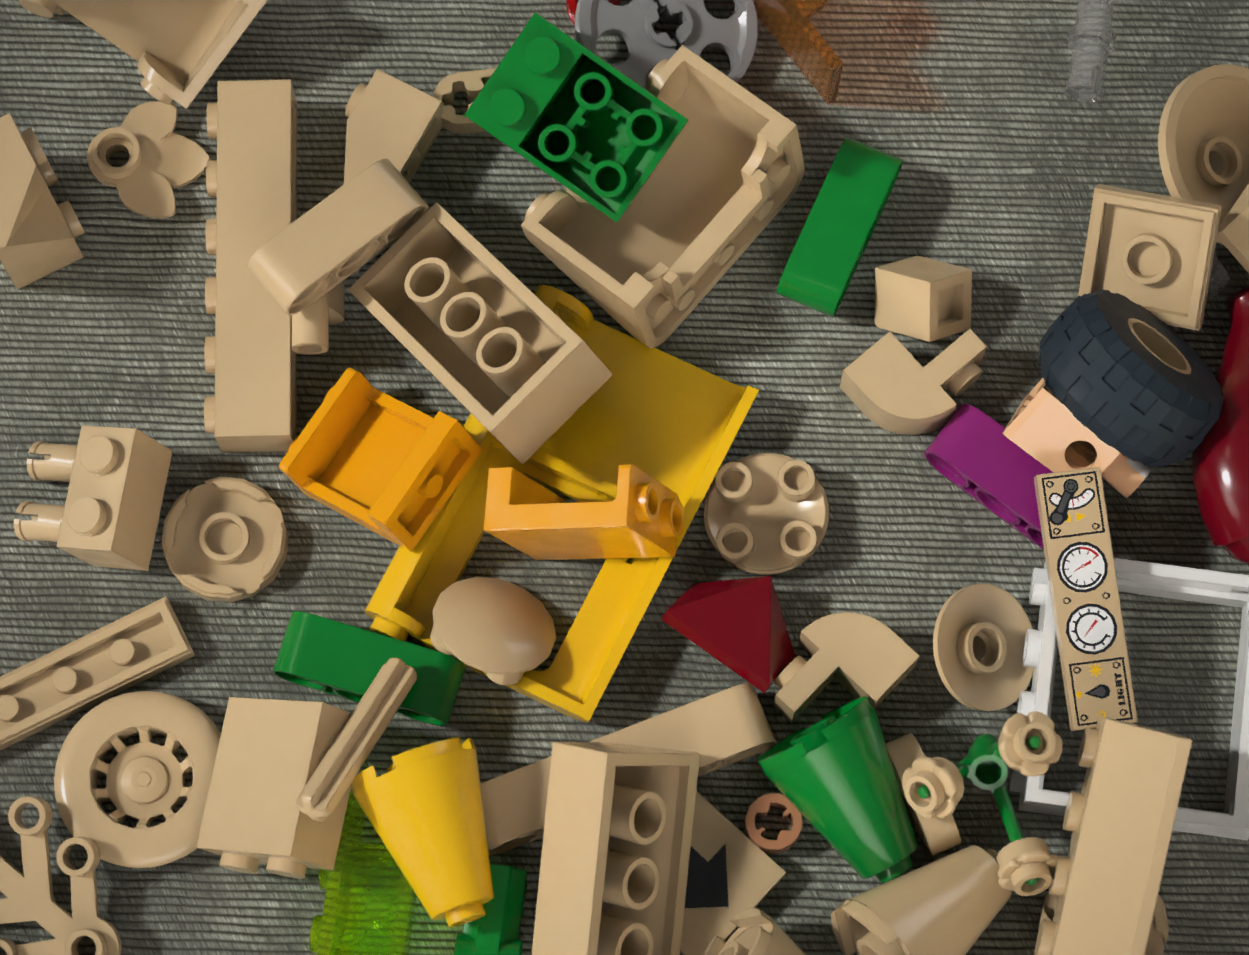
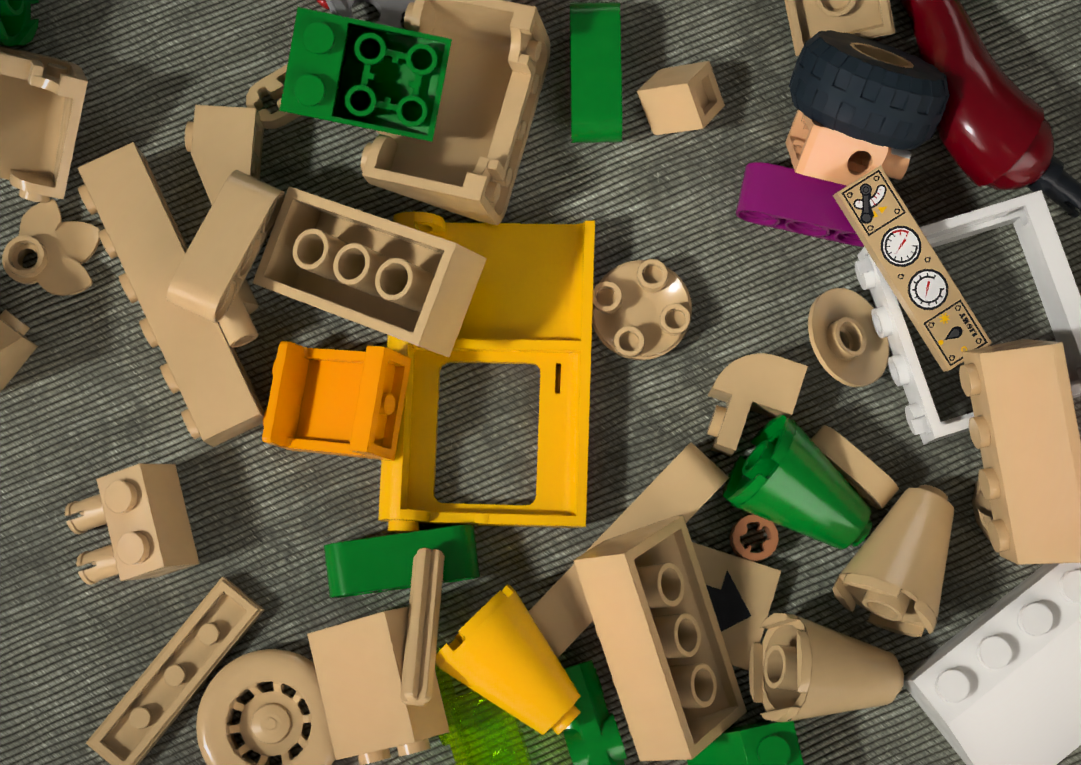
camera: 25 degrees left, 5 degrees up
(225, 539) = (246, 512): tan tile -> none
(493, 627) = (480, 488): tan dish -> none
(537, 522) = (471, 395): light orange panel -> none
(736, 625) = (659, 404): dark red slope -> none
(902, 393) = (699, 175): tan brick -> none
(1024, 745) = (927, 400): tan plant -> none

